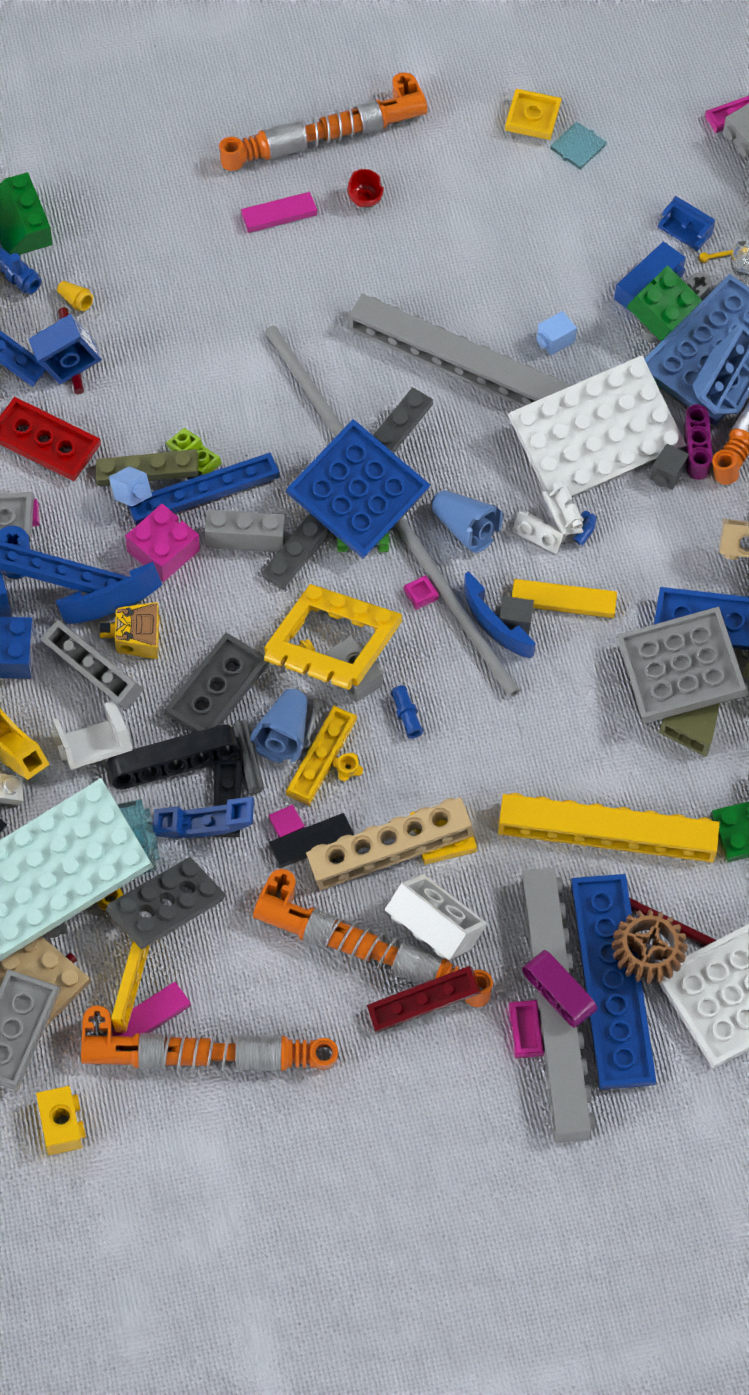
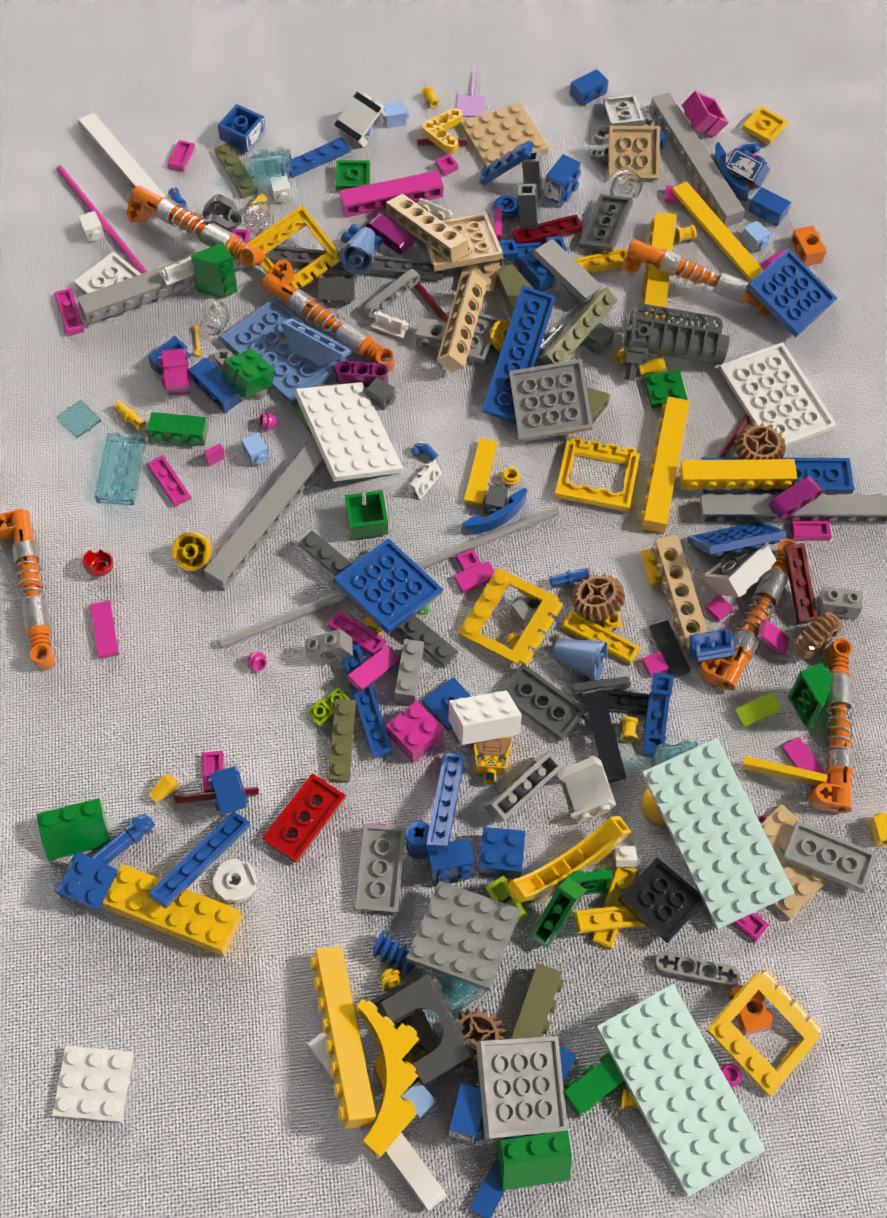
camera: 85 degrees left, 0 degrees up
(106, 600) = (470, 795): blue slope -> none
(110, 341) = (211, 763): none -> dark pink tile
(130, 486) = (365, 748): light blue brick -> none
(165, 917) = (728, 732): dark grey plate -> none
(179, 610) = (484, 717): none -> white brick
(184, 788) = (628, 729): none -> yellow bush
(209, 584) = (439, 700): none -> blue plate
(225, 949) = (758, 709): none -> lime slope
(238, 1002) = (810, 693): none -> green slope
(244, 488) = (373, 668): none -> dark pink tile
(248, 368) = (256, 661): none -> dark pink plate
(267, 435) = (328, 647): none -> light grey brick
(305, 456) = (367, 640): none -> dark pink tile
(307, 877) = (712, 645): none -> blue hinge
(334, 965) = (773, 637): none -> dark pink tile
(340, 1020) = (817, 635): none -> medium nougat gear
(374, 742) = (598, 597): none -> medium nougat gear
(378, 902) = (719, 608): none -> dark pink tile
(390, 280) = (191, 551): none -> yellow cylinder
(396, 598) = (474, 577): none -> dark pink tile
(402, 1059) = (840, 602): none -> light grey brick
(466, 461) = (367, 519): none -> green piece
(468, 519) = (413, 521): medium blue cone -> none
(477, 902) = (737, 537): none -> blue plate
(498, 249) = (168, 481): none -> dark pink tile
(507, 196) = (120, 469): none -> clear light blue gear
(533, 114) = (45, 442): yellow plate -> none
(540, 289) = (214, 455): none -> dark pink tile
(543, 740) = (585, 493): none -> yellow hinge
(560, 628) = (510, 472): none -> yellow plate
(564, 513) = (407, 458): white hinge -> none
(573, 246) = (177, 429): none -> green brick
(588, 194) = (129, 415): none -> yellow pin
(594, 916) = (737, 474): none -> yellow brick
(604, 344) = (267, 421): none -> dark pink plate
(651, 224) = (176, 372): none -> dark pink piece

